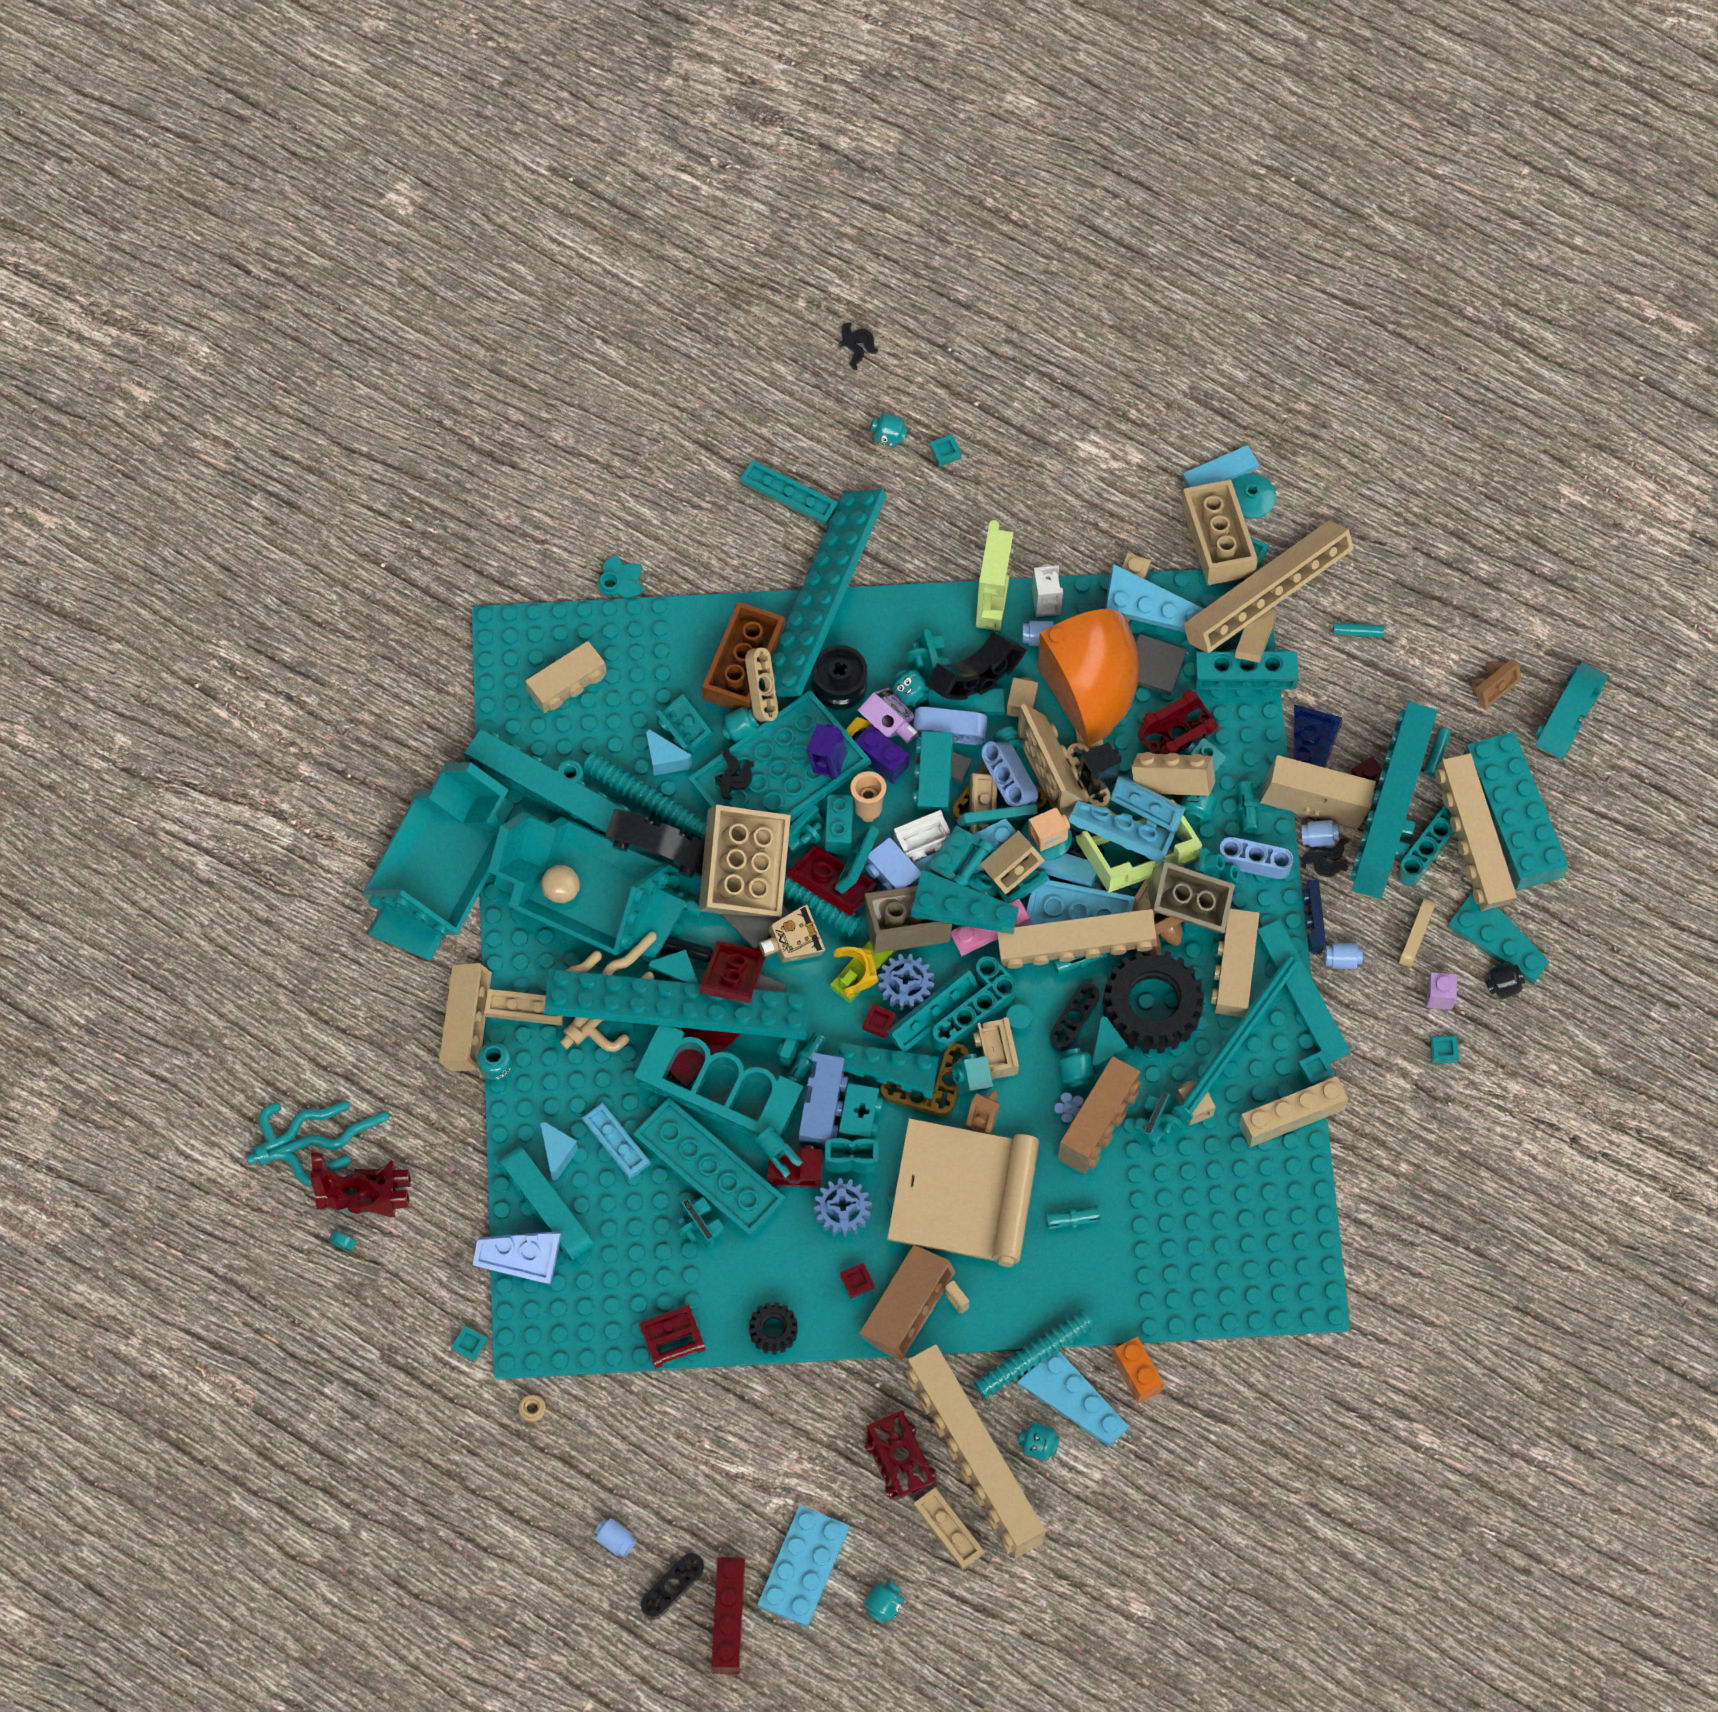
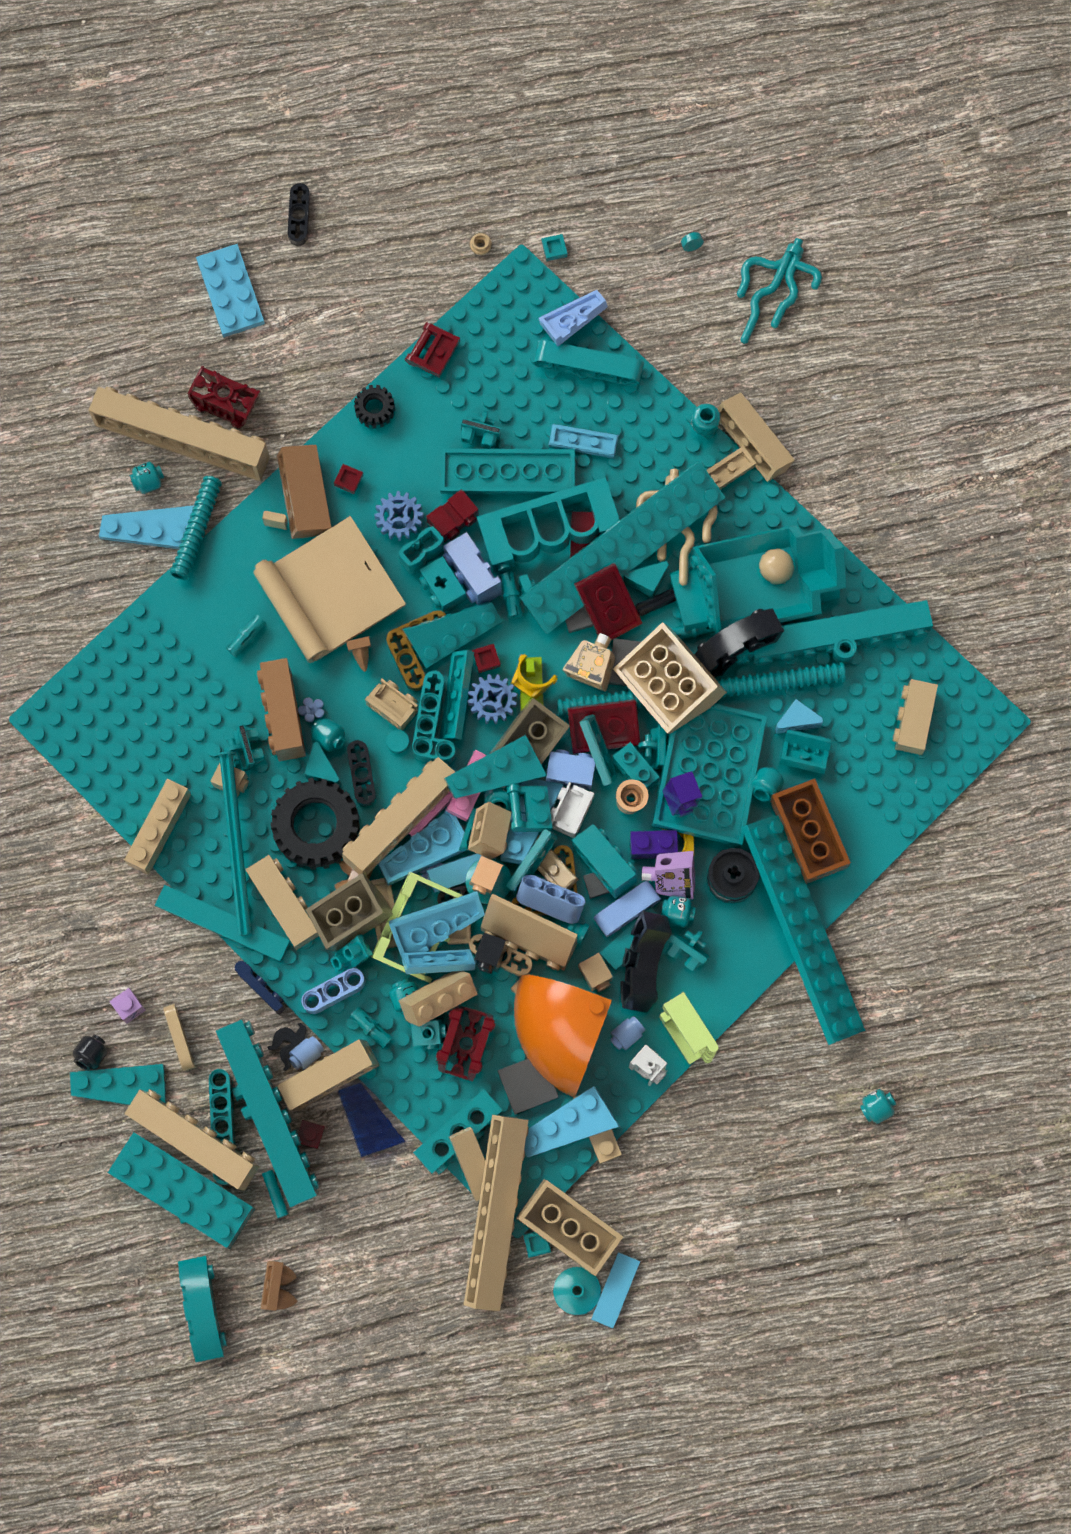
camera: 140 degrees right, 10 degrees up
(371, 1196) = (729, 258): dark red hips -> none
(437, 860) = (874, 519): teal panel -> none
(558, 1148) = (614, 401): medium azure slope -> none
(615, 1537) = (358, 210): light blue brick -> none
(622, 576) = (952, 831): teal plate -> none
(728, 1616) = (247, 221): dark red brick -> none
(729, 780) = (735, 732): black piece -> none
(769, 692) = (785, 813): tan beam -> none
(775, 1148) = (467, 505): teal hinge -> none
(789, 492) = (901, 995): teal plate -> none
(858, 336) = (971, 1171): black piece -> none
(884, 1601) = (160, 305): teal head -> none
(945, 450) = (824, 1127): teal plate -> none
(949, 1528) = (158, 382): tan plate -> none
(972, 1075) = (390, 667): teal brick -> none
(1137, 1370) = (121, 573): orange brick -> none
(1316, 1068) = (168, 872): teal plate -> none
(1343, 955) = (216, 975): light blue brick -> none
(1362, 630) = (409, 1244): teal piece -> none
(1444, 1049) = (95, 968): teal tile -> none

